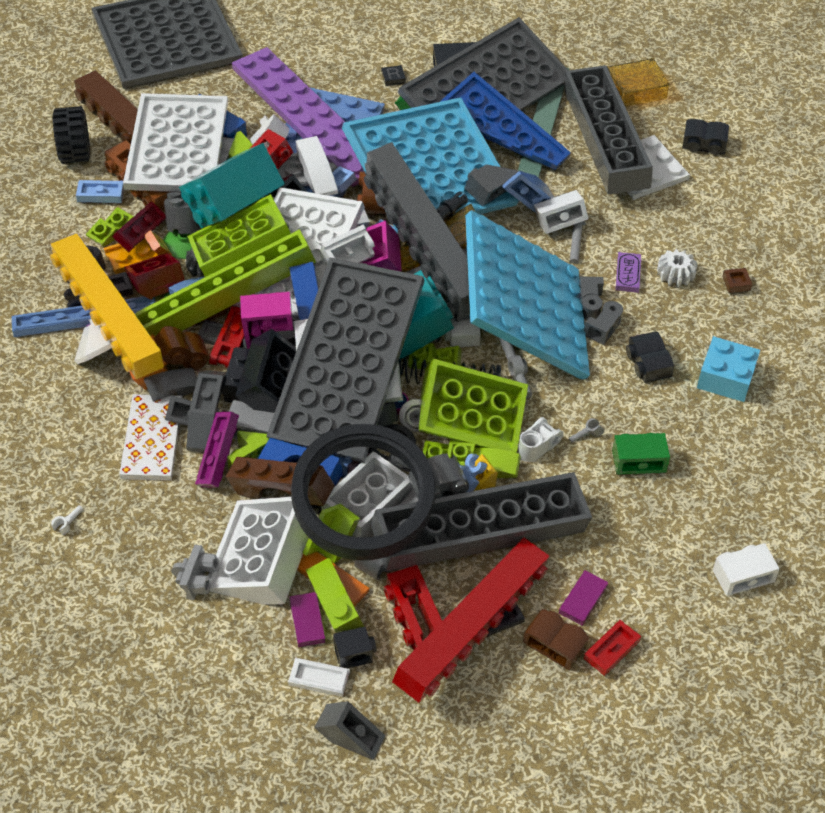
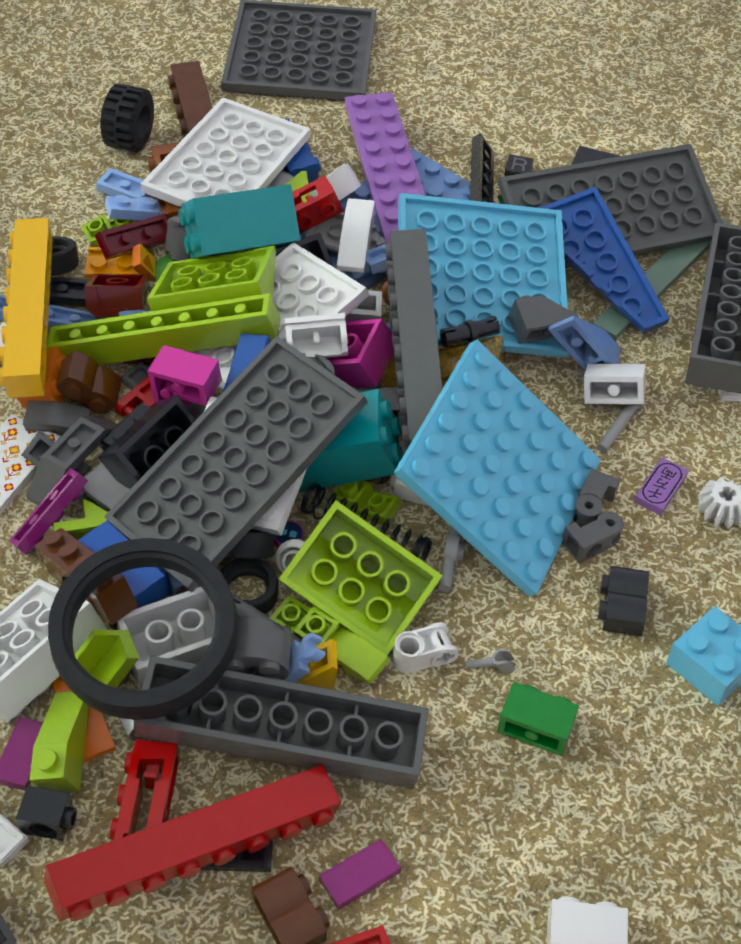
camera: 25 degrees right, 0 degrees up
(121, 205) = (131, 208): none -> light blue plate
(372, 88) = (481, 170): none -> black plate

